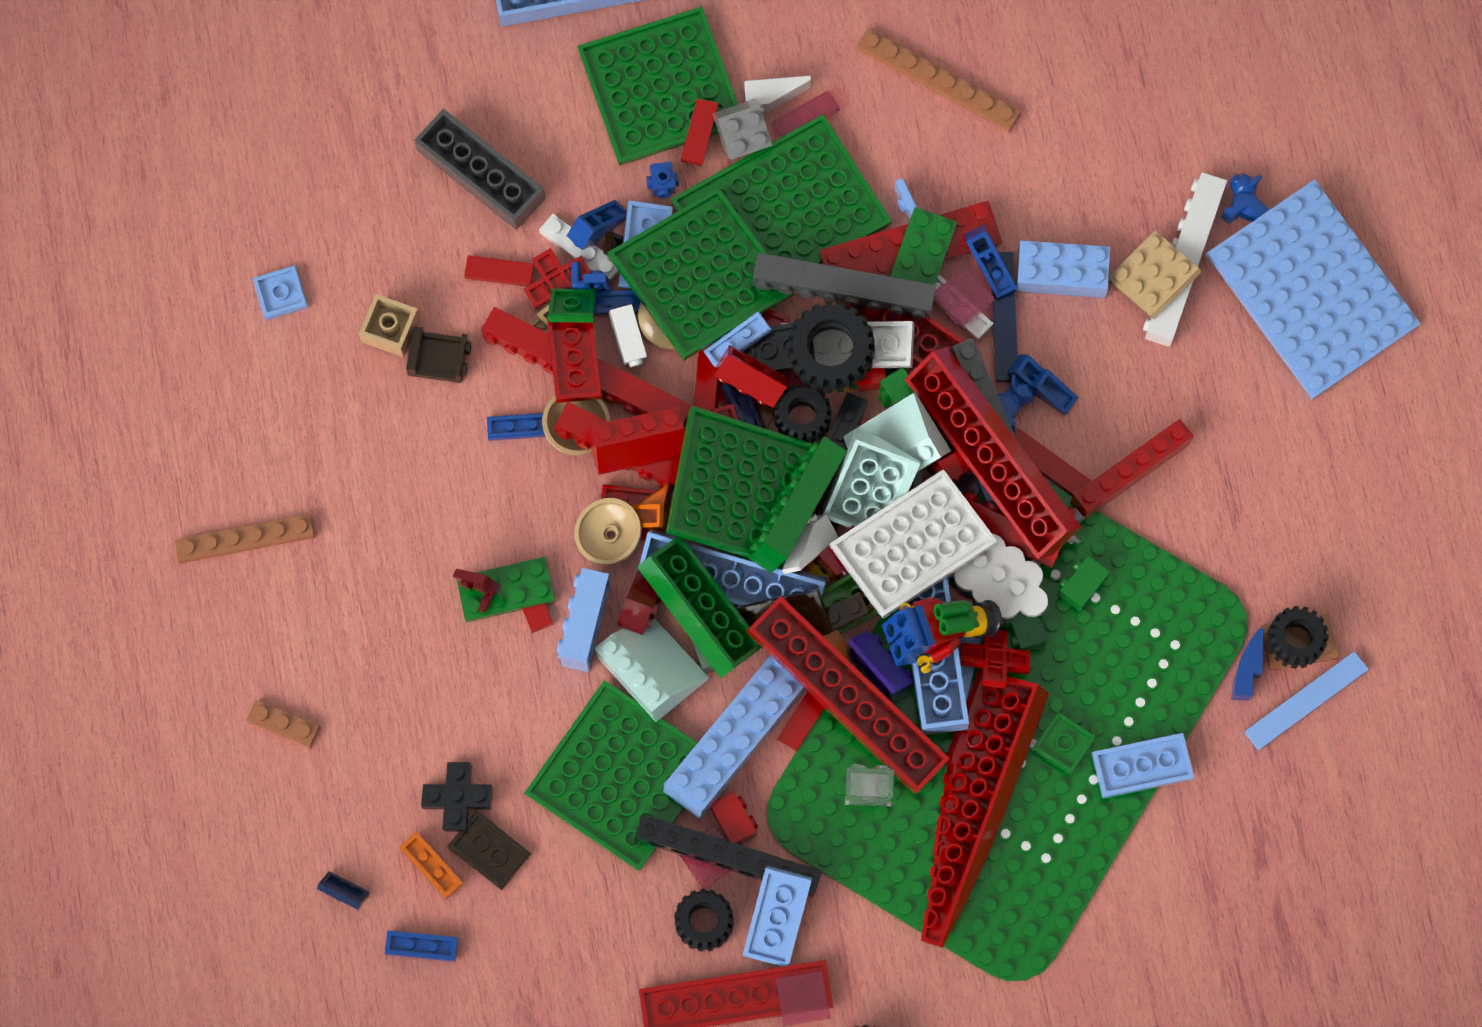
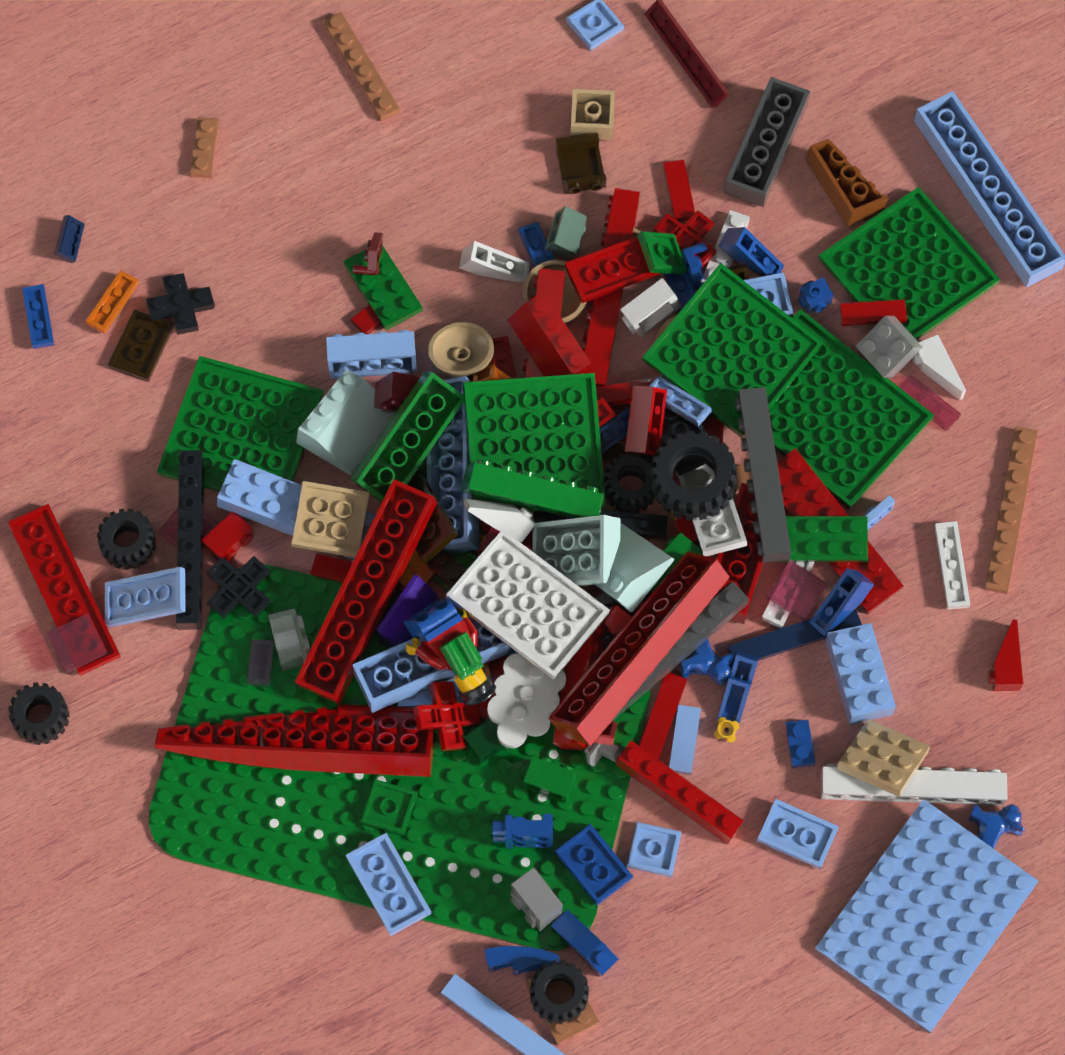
camera: 70 degrees right, 5 degrees down
(350, 214) = (686, 53): none -> dark red plate
(512, 392) = (566, 233): none -> sand green brick
(520, 473) = (493, 263): none -> white slope
(550, 113) = (845, 186): none -> dark orange wedge
(760, 707) = (330, 519): none -> tan plate
(793, 822) = (238, 587): none -> black plate
(879, 823) = (260, 662): none -> plate
(979, 151) = (952, 565): none -> white plate
(1076, 449) = (684, 739): none -> light blue tile
(1085, 407) = (730, 735): none -> yellow plate
(1093, 136) = (1007, 668): none -> red slope
(1111, 347) = (800, 743): none -> blue plate
(1129, 630) = (524, 832): none -> blue hips
(1175, 512) = (654, 849): none -> light blue tile
(1177, 570) = (593, 864): none -> blue tile
(1200, 377) = (797, 834): none -> light blue plate
(1203, 630) = (536, 900): none -> light grey brick
(1253, 601) = (584, 943): none -> blue slope

